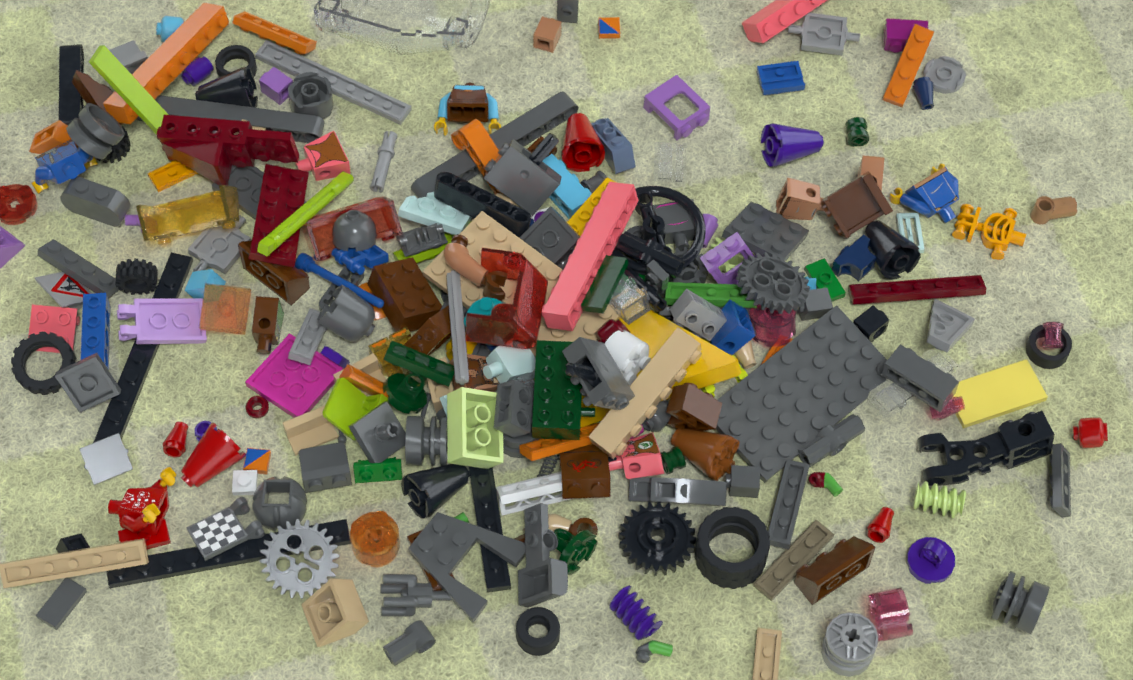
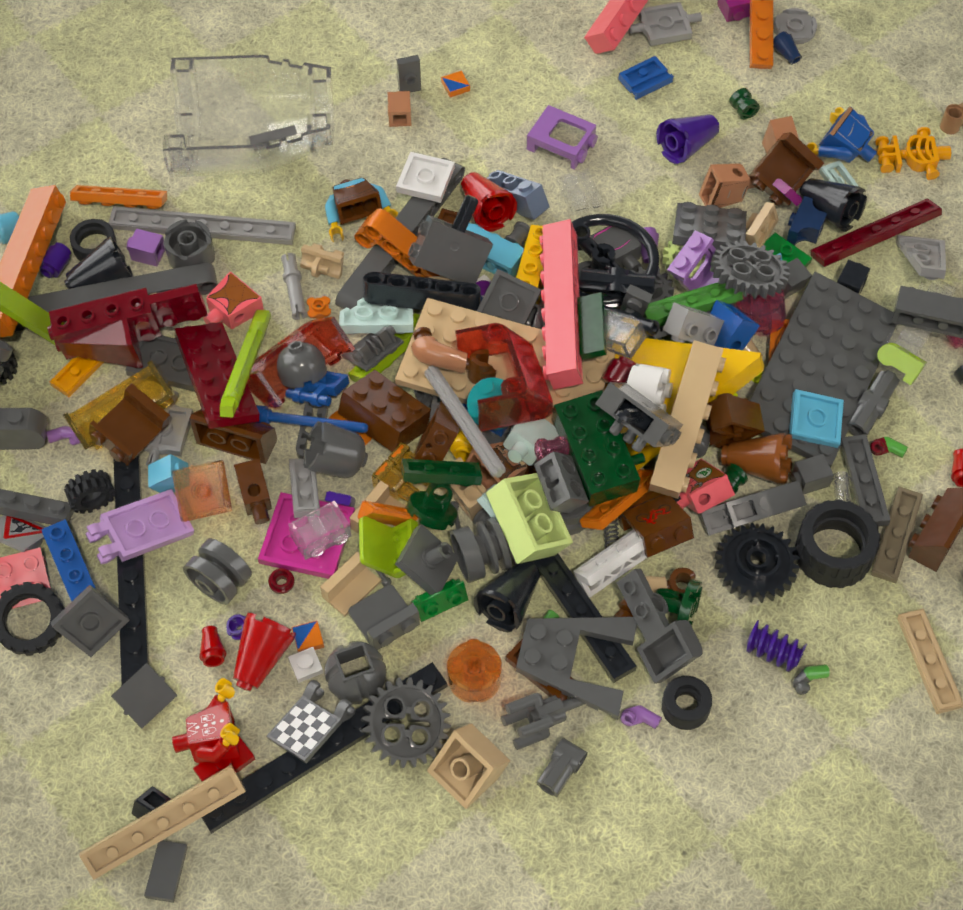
camera: 20 degrees left, 0 degrees up
(190, 234) = (129, 425): none -> reddish brown panel
(206, 379) = (217, 571): none -> dark grey wheel
(303, 376) = (320, 530): none -> clear brick
(396, 192) = (318, 312): none -> orange plate
(411, 26) = (271, 136): none -> dark grey wing
(416, 148) = (322, 261): none -> tan hips
(494, 626) = (638, 715): none -> medium lavender arm
(524, 376) = (550, 446): none -> clear pink bush
(535, 104) = (425, 177): none -> white plate
(765, 502) = (841, 483): none -> clear pin
(769, 434) = (816, 418): none -> medium azure tile
(811, 249) = (761, 225): none -> tan panel
(849, 225) = (787, 191): none -> magenta tile
(873, 412) = (901, 359): none -> lime leg

